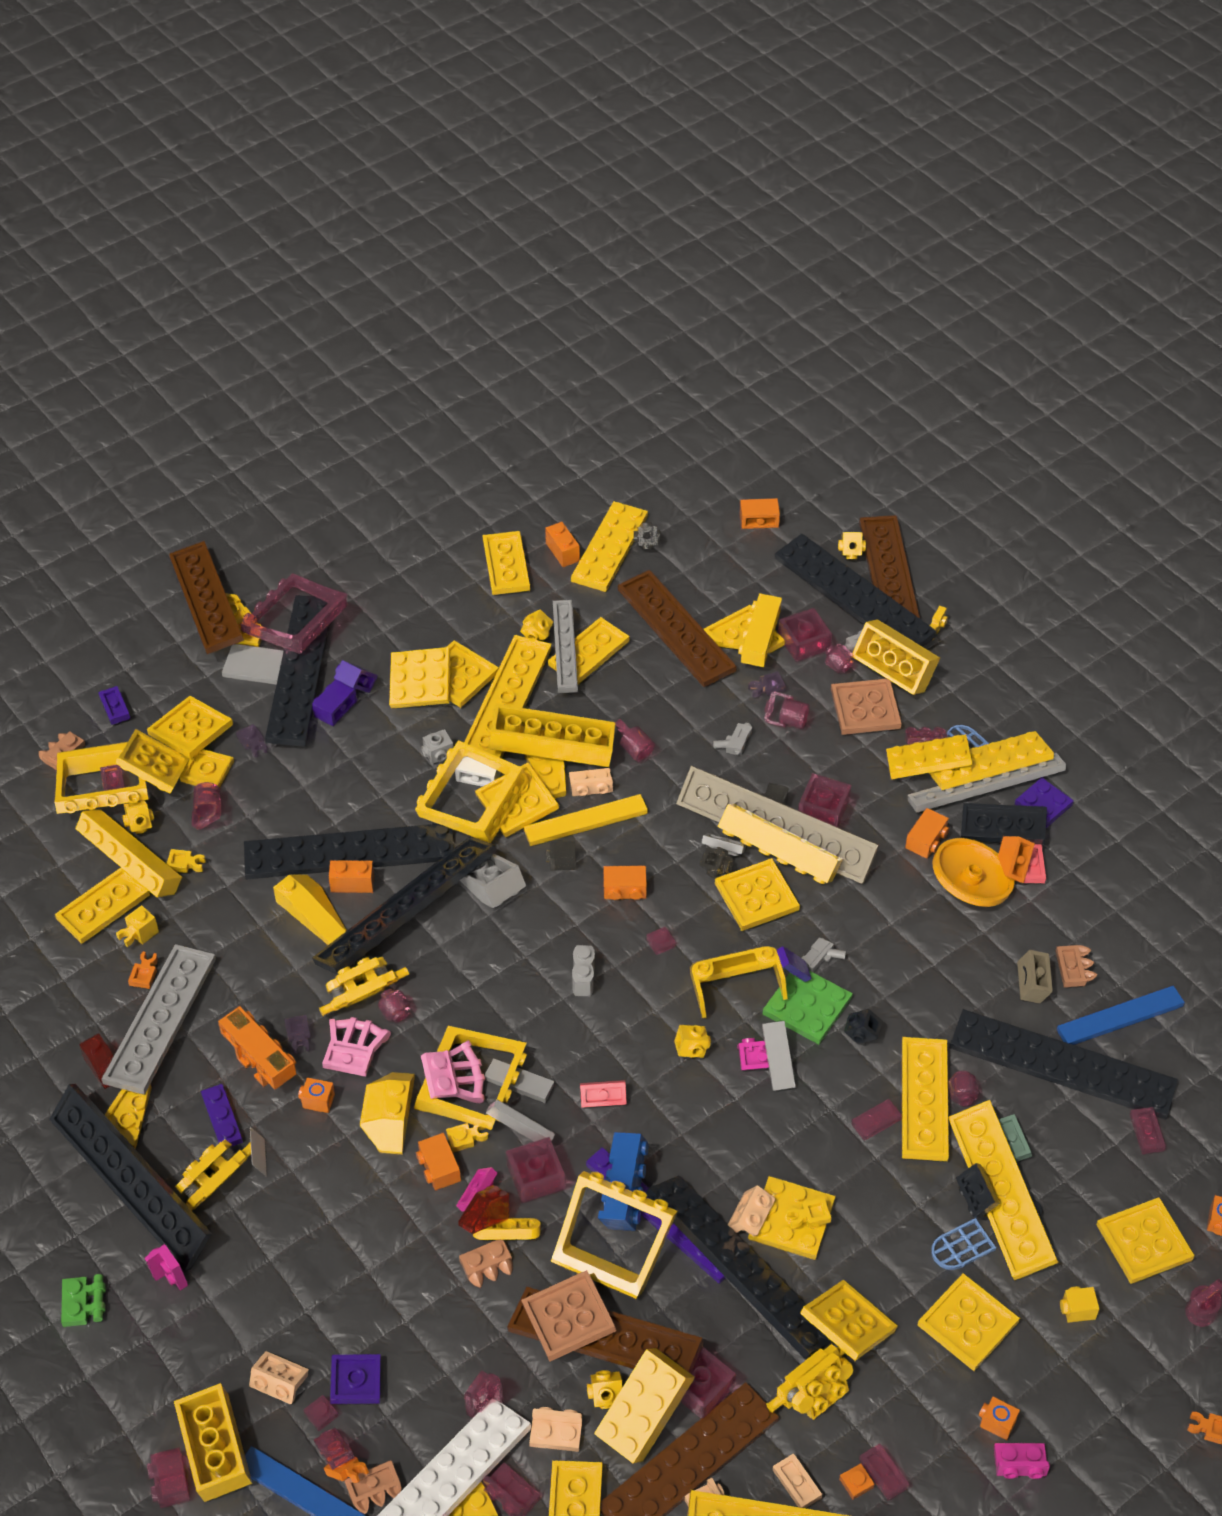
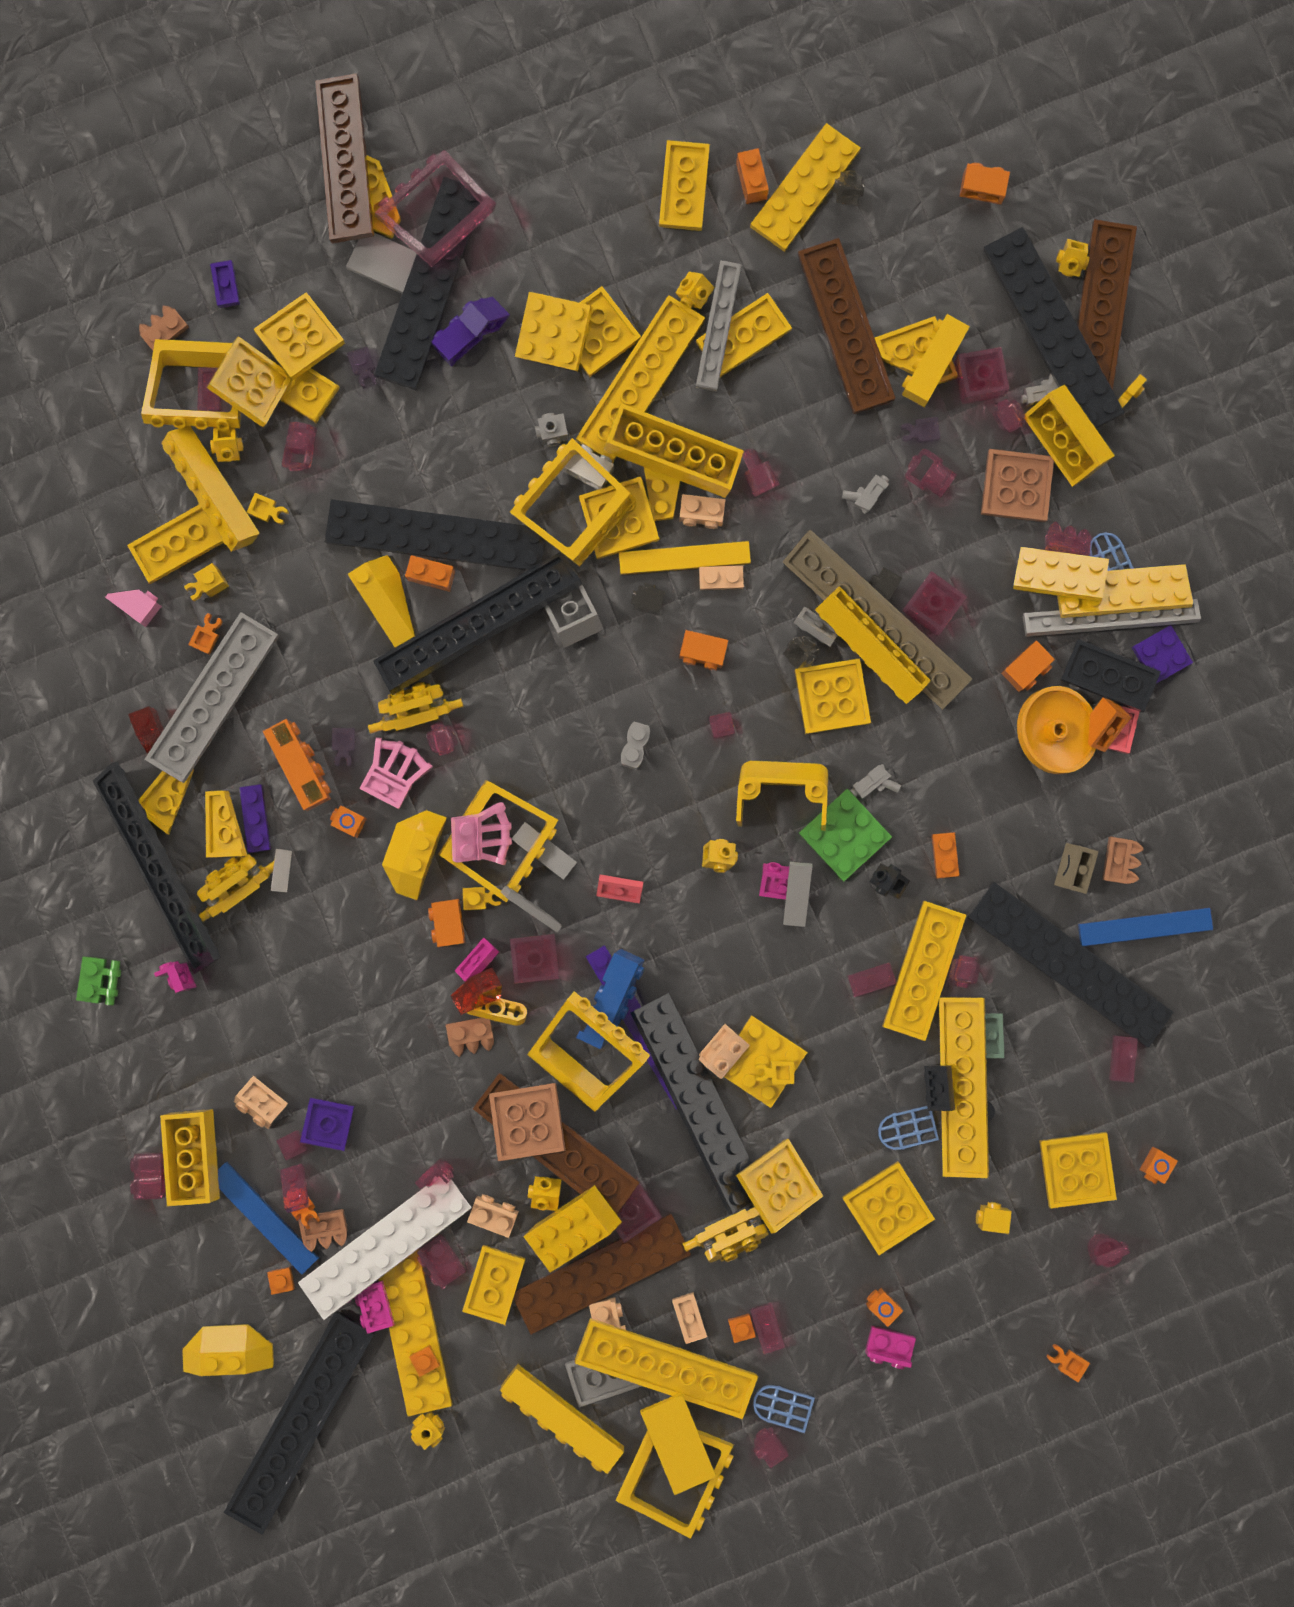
camera: 10 degrees right, 35 degrees up
(69, 960) = (136, 604): none -> bright pink slope
(189, 1127) = (222, 827): none -> yellow wing
(624, 828) = (721, 577): none -> light nougat plate
(794, 964) = (841, 802): dark purple tile -> none
(908, 999) = (945, 855): none -> orange plate

